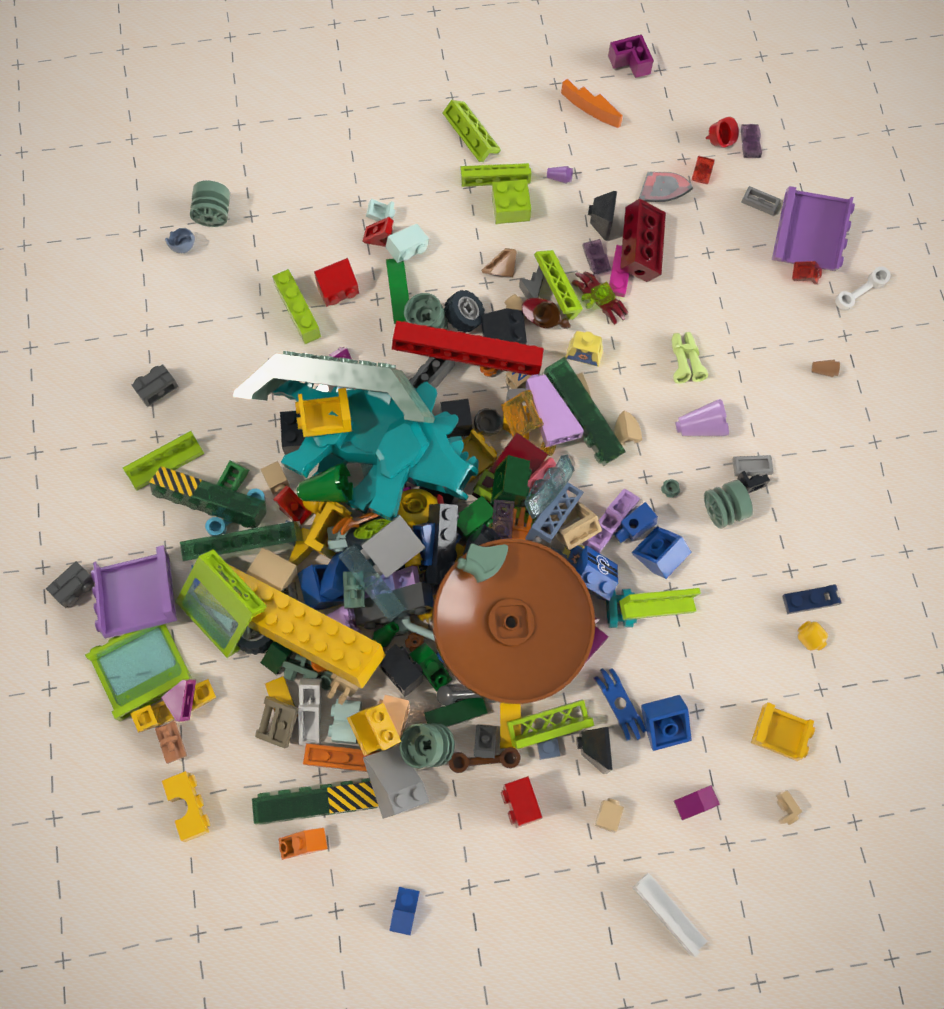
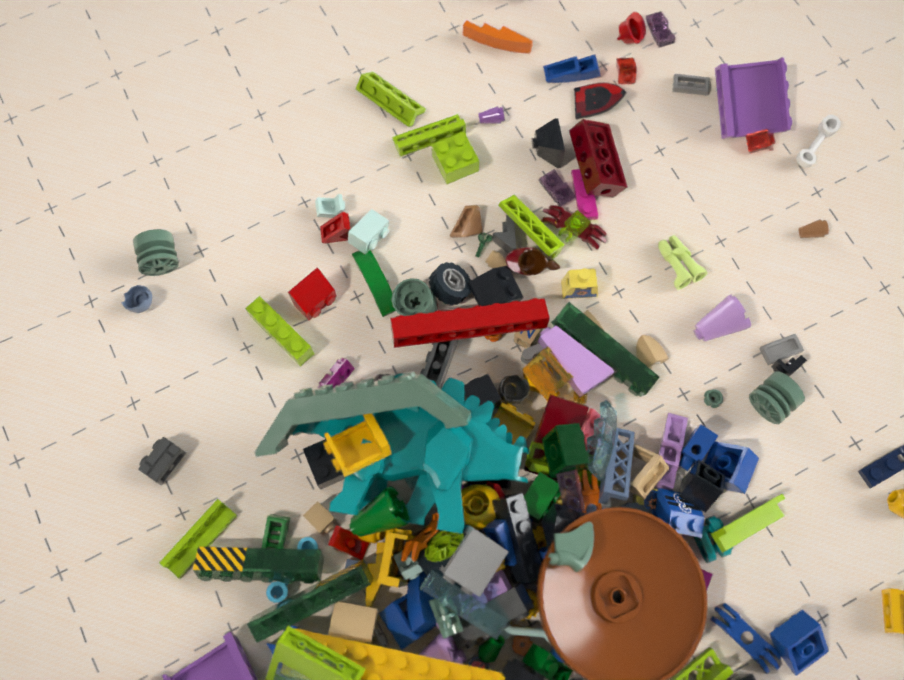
camera: 15 degrees left, 0 degrees up
(509, 284) = (482, 242): none -> clear green hand
(626, 556) = (702, 486): none -> black head
(652, 154) = (572, 70): none -> blue slope

